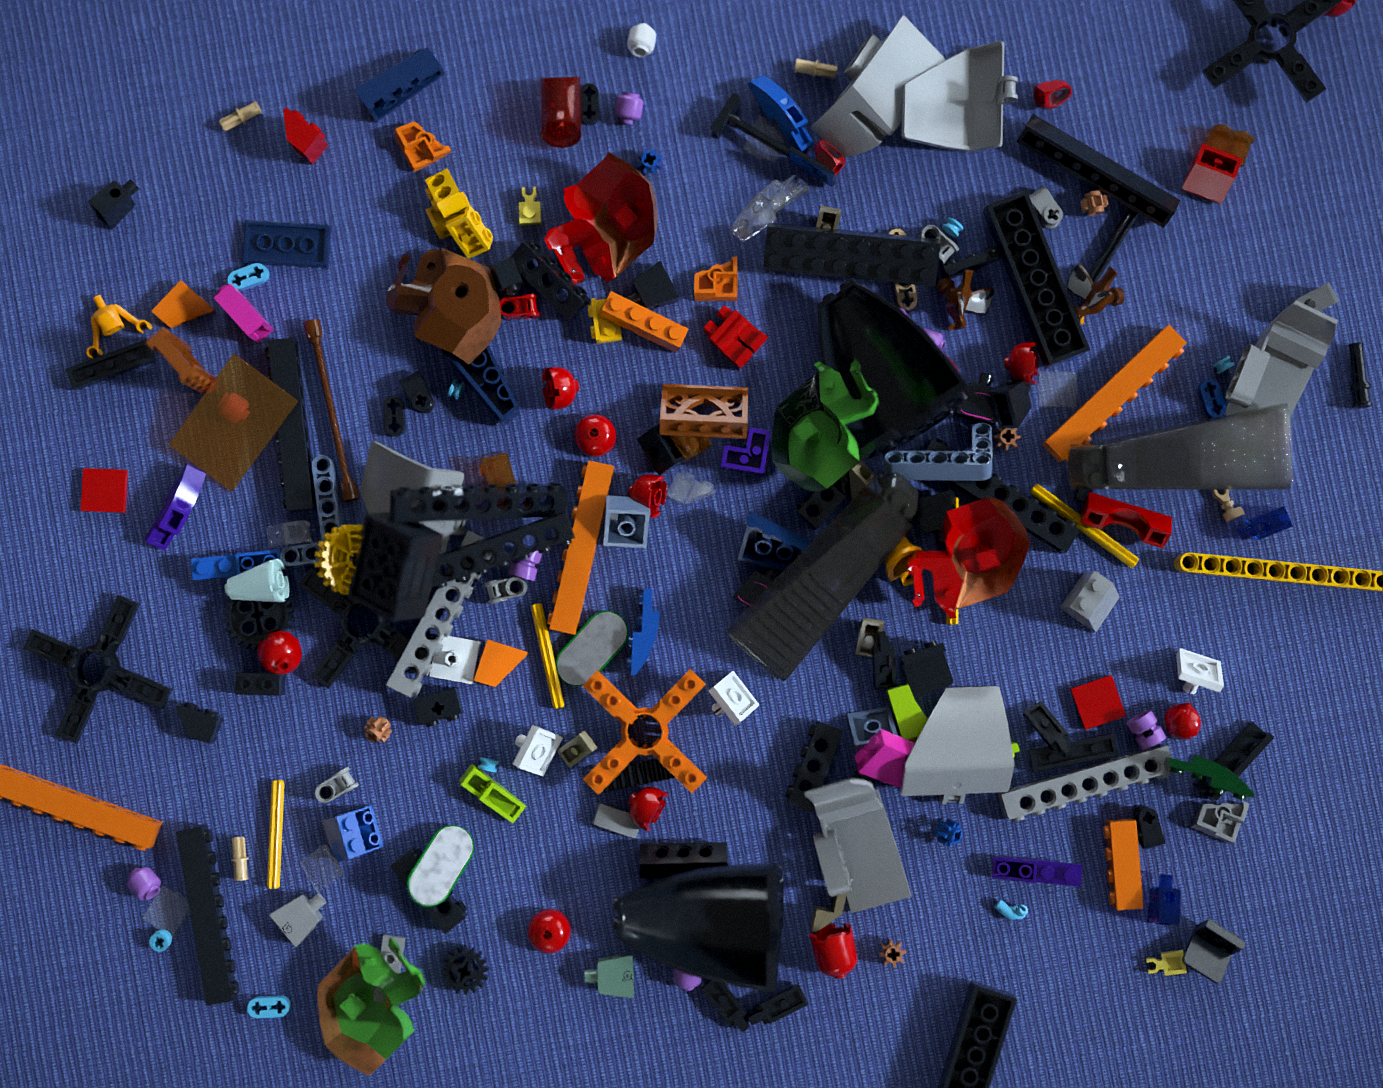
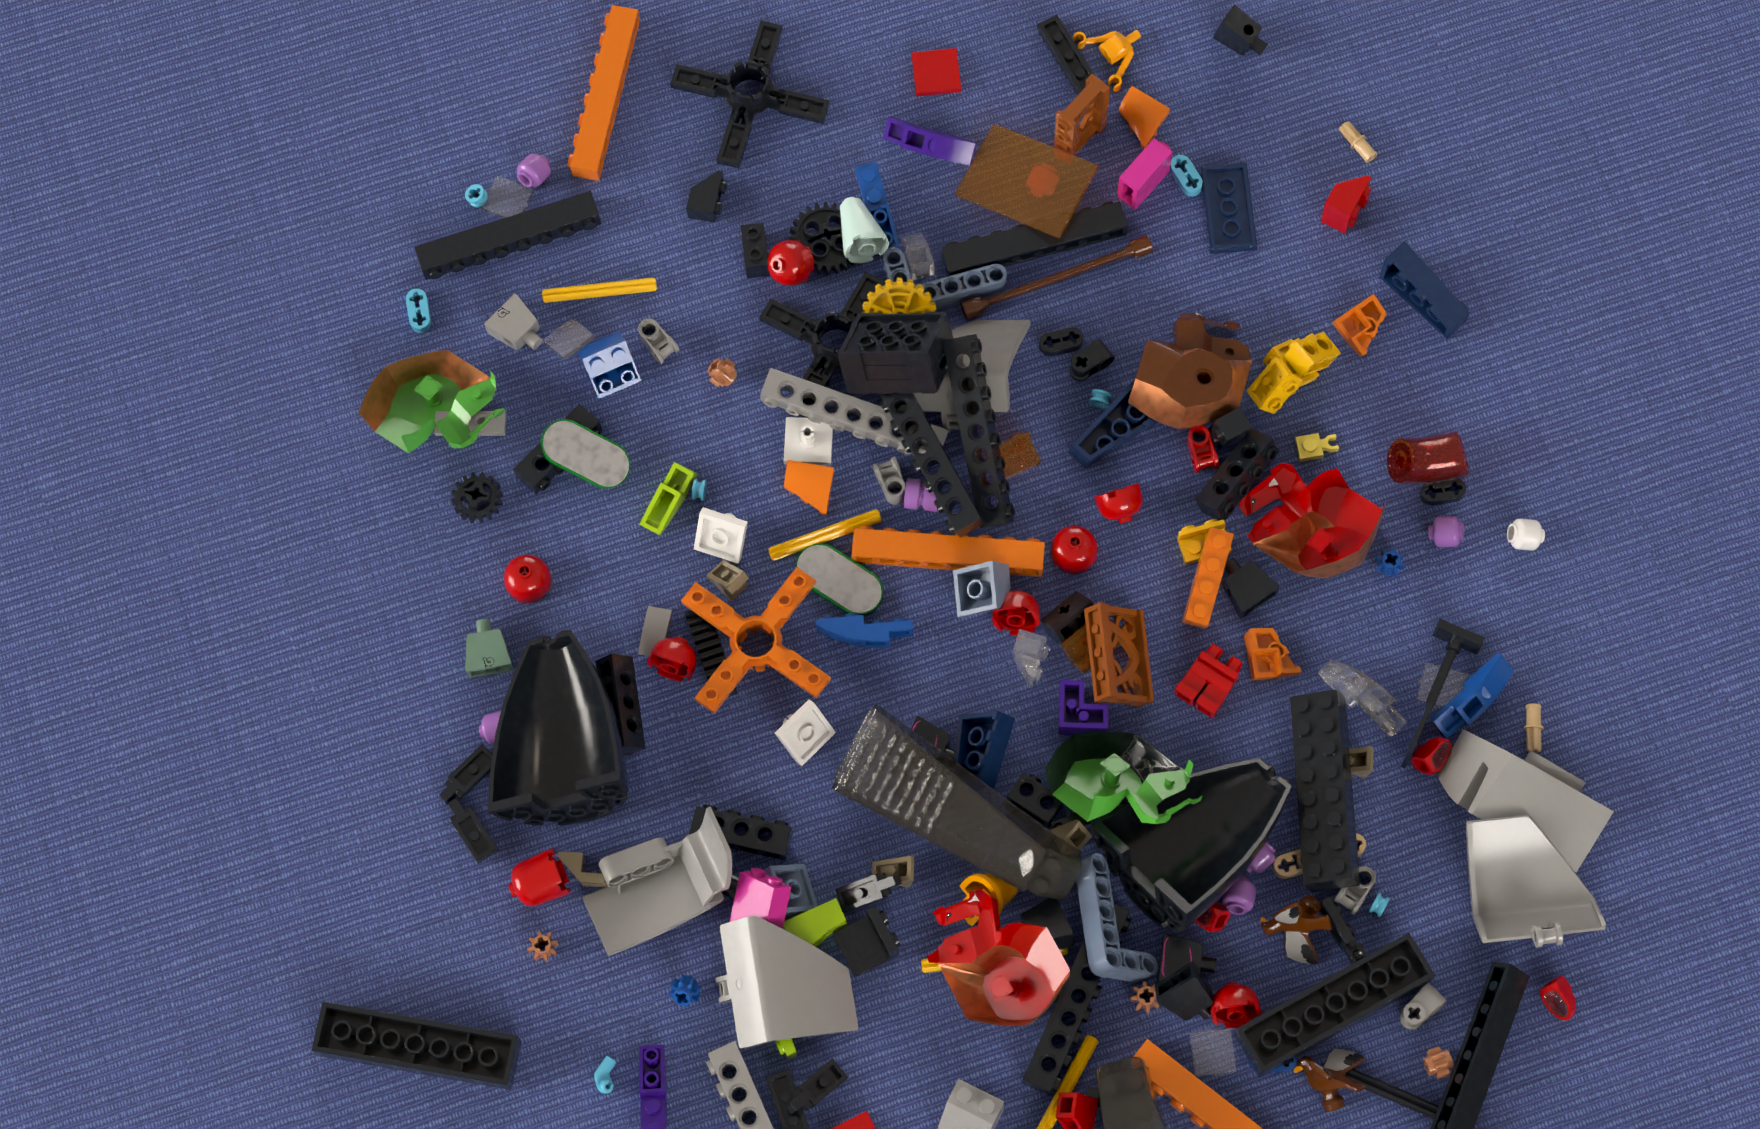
camera: 90 degrees right, 15 degrees down
(239, 858) = (569, 258): tan axle -> none
(425, 707) = (754, 417): black brick -> none

